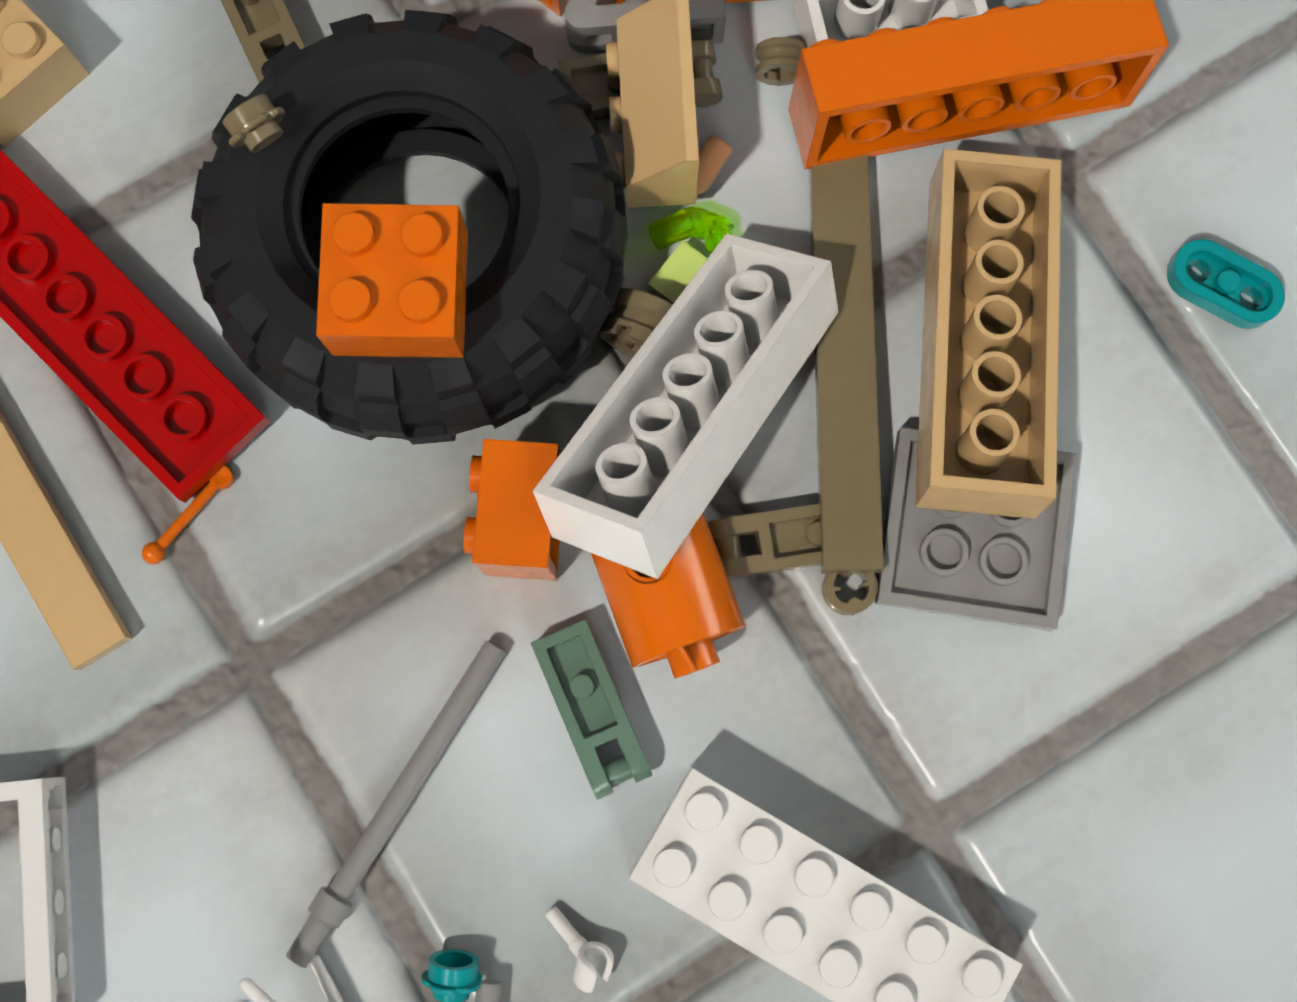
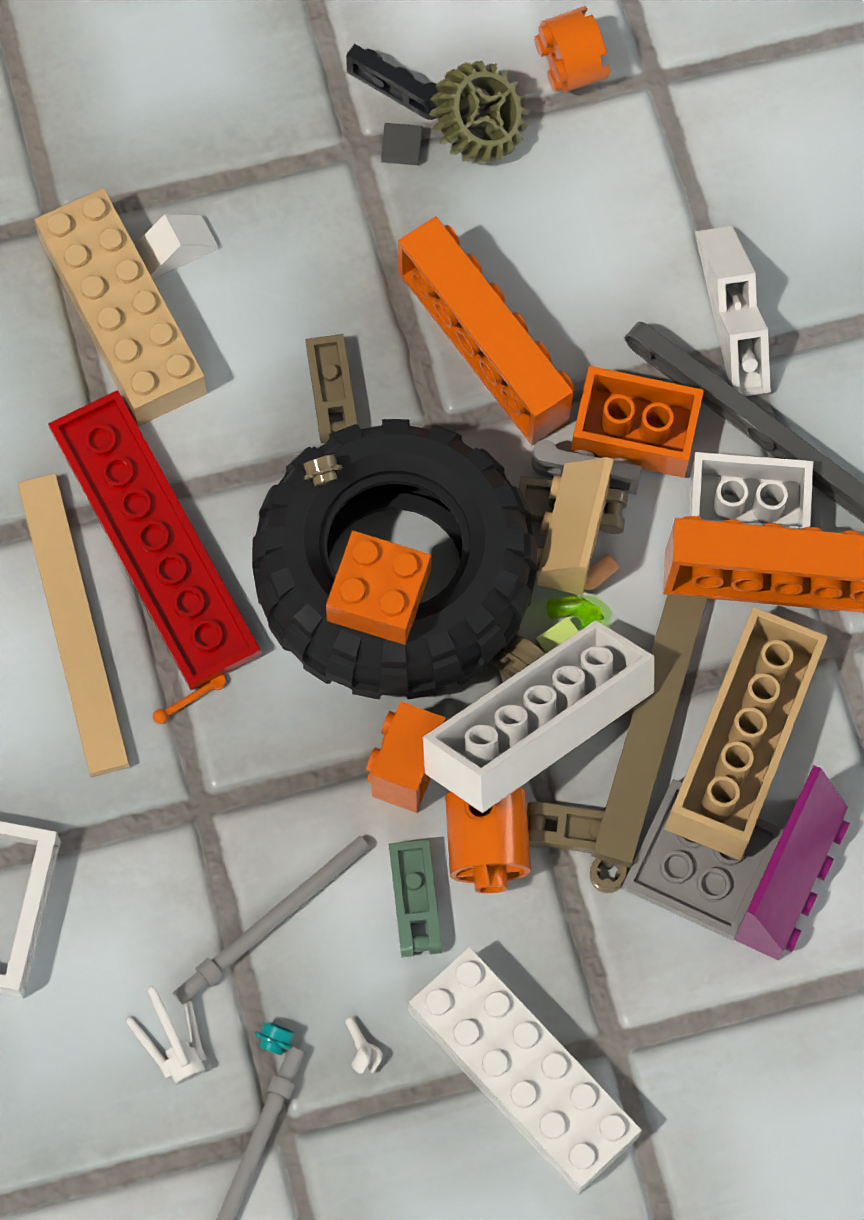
camera: 15 degrees right, 10 degrees down
(778, 60) = (665, 516): dark tan bush -> none
(1114, 487) = (794, 868): none -> magenta slope

